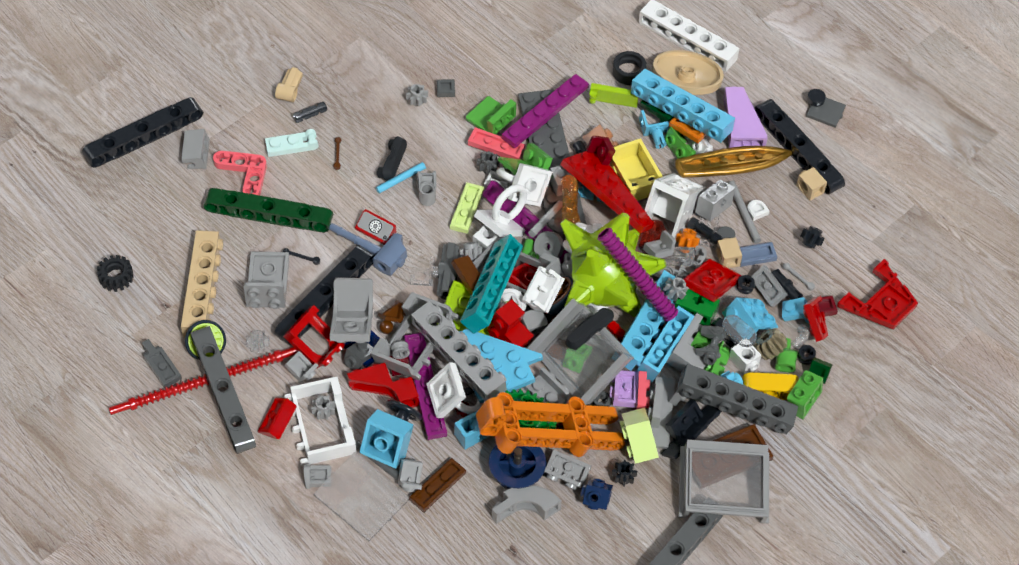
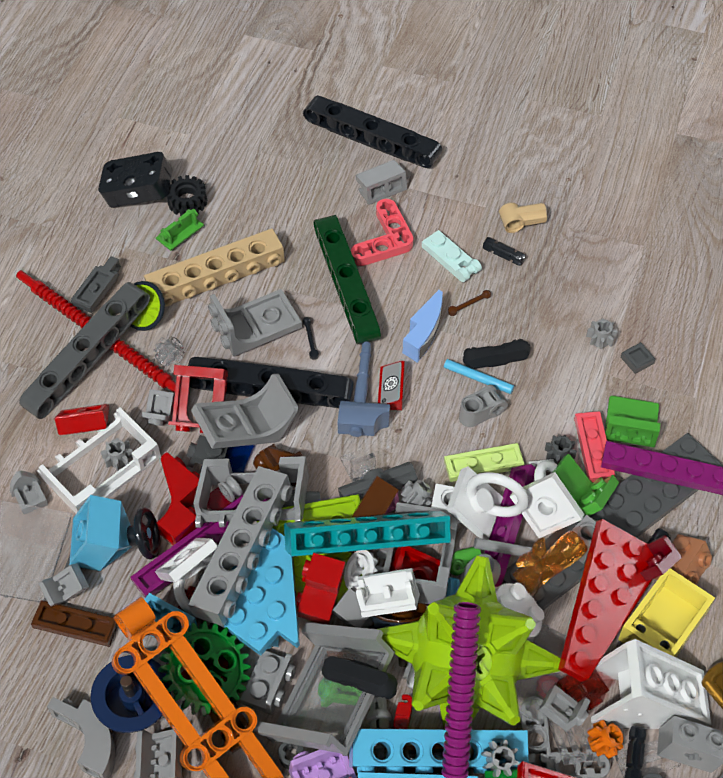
camera: 65 degrees right, 0 degrees up
(74, 293) = (135, 179): none -> black axle
(145, 291) = (180, 230): none -> bright green hinge
(343, 185) = (423, 328): none -> light blue slope

